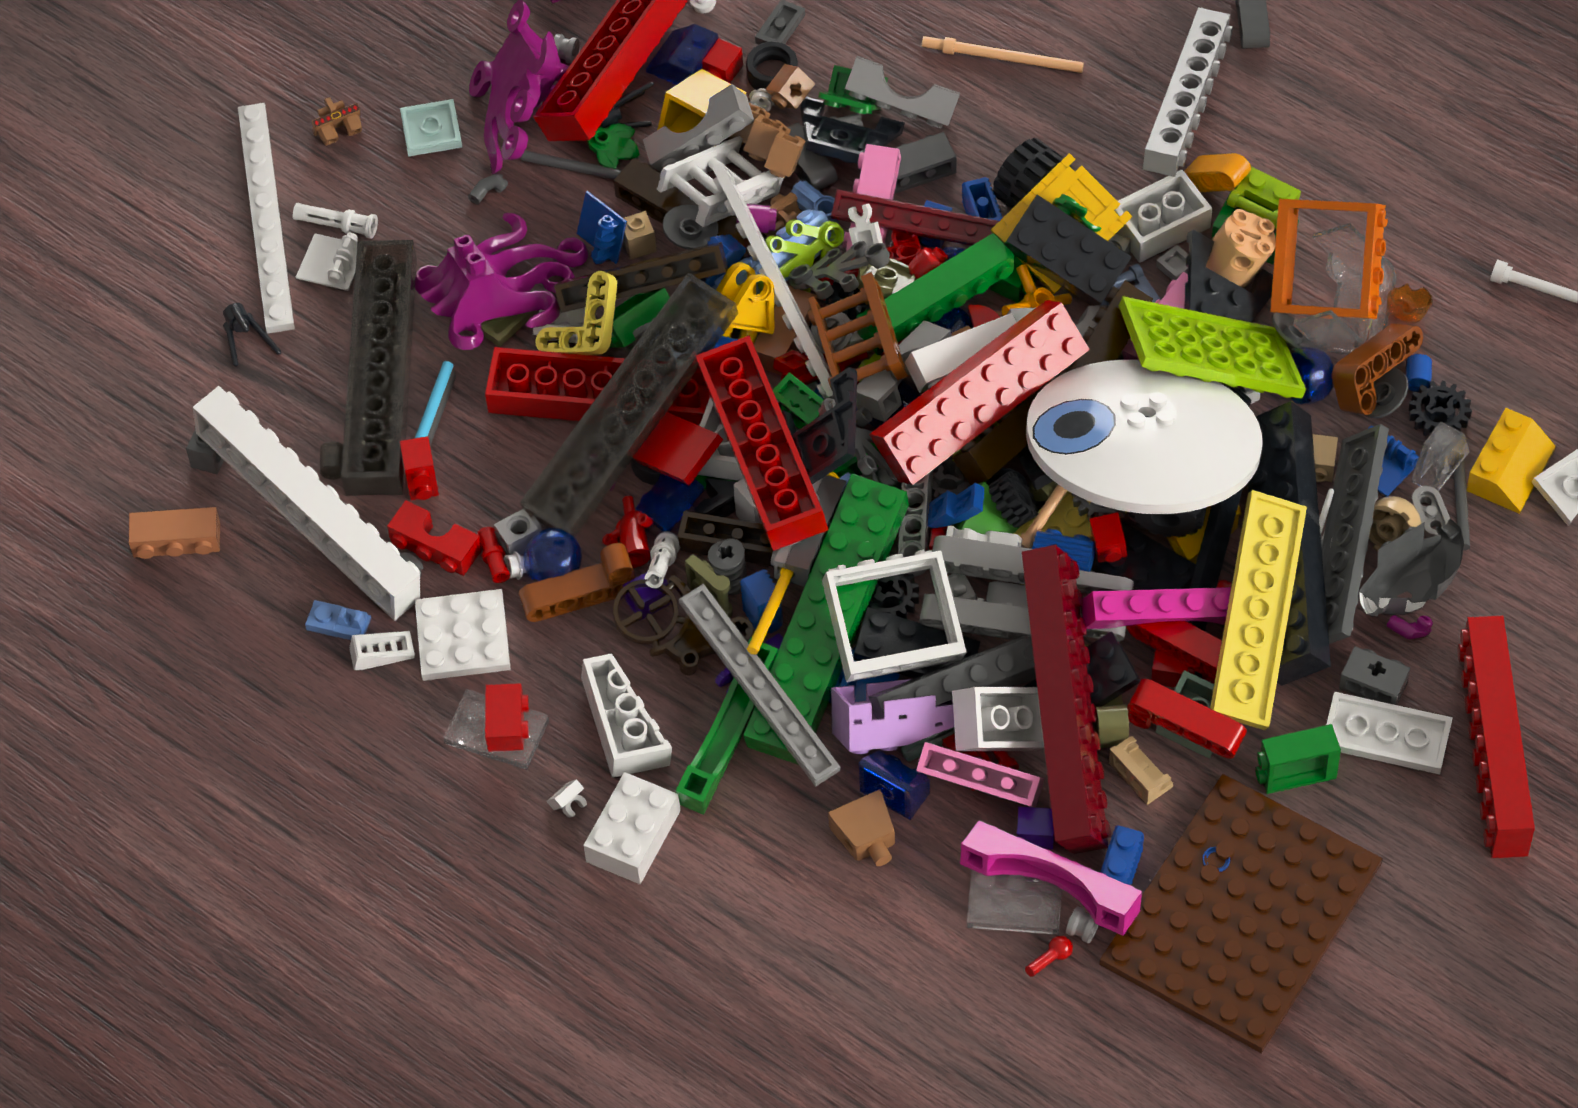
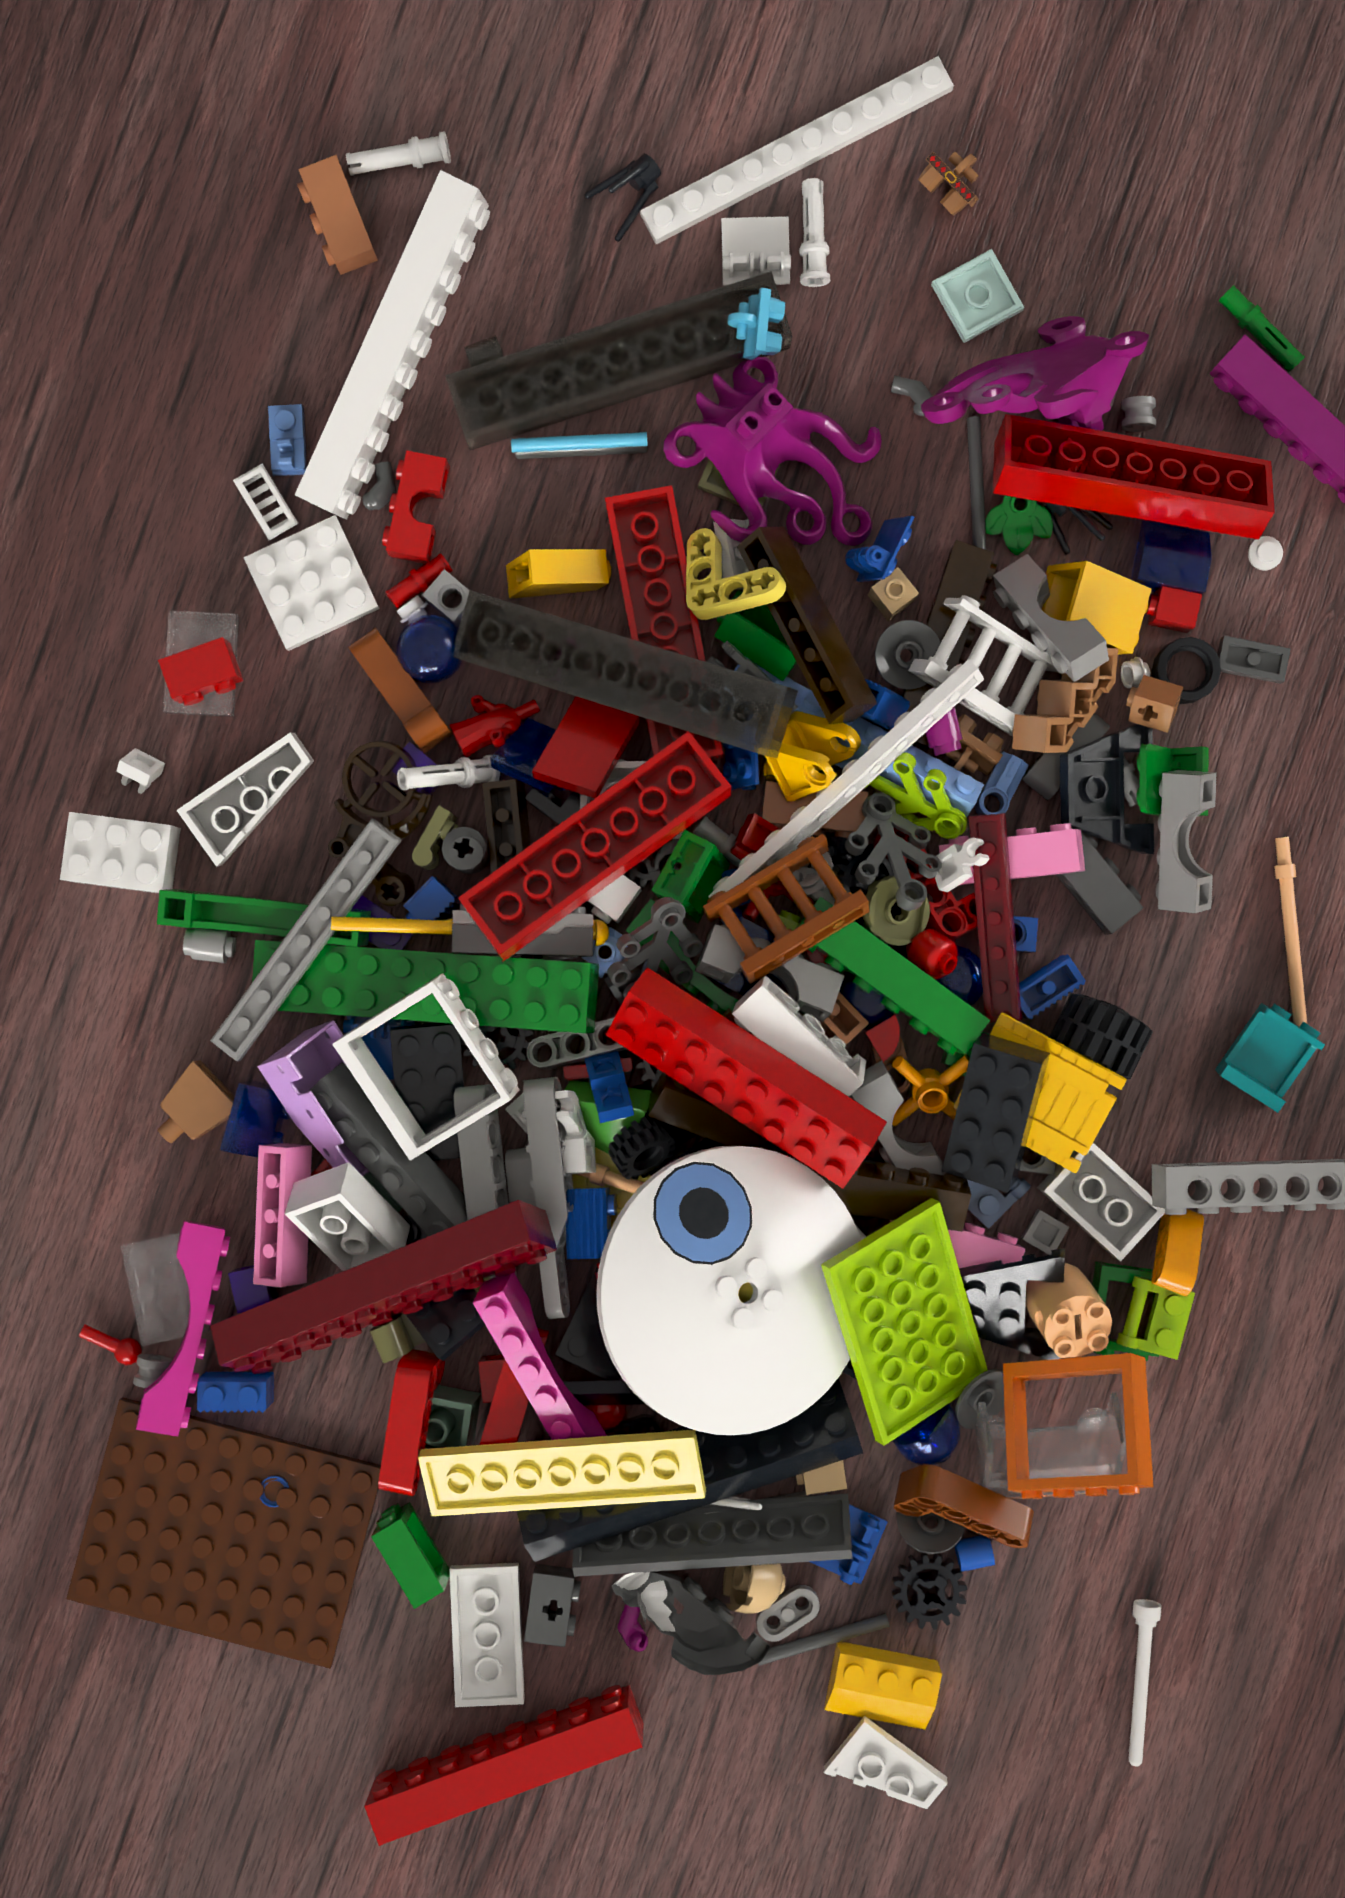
camera: 70 degrees right, 30 degrees up
(148, 467) = (414, 152): none -> white pin
(397, 253) = (753, 324): none -> medium azure hips
(419, 468) = (490, 458): red brick -> none
(527, 453) = (557, 572): none -> yellow slope
(733, 783) = (209, 944): none -> light grey brick
(830, 437) = (620, 925): black wing -> none
(1074, 210) = (1046, 1103): green plate -> none
(1086, 86) = (1269, 1055): none -> teal panel
(1139, 770) = (359, 1381): tan hinge -> none
(1409, 304) = (1067, 1521): clear orange hair -> none
(1440, 456) = (857, 1608): clear slope -> none

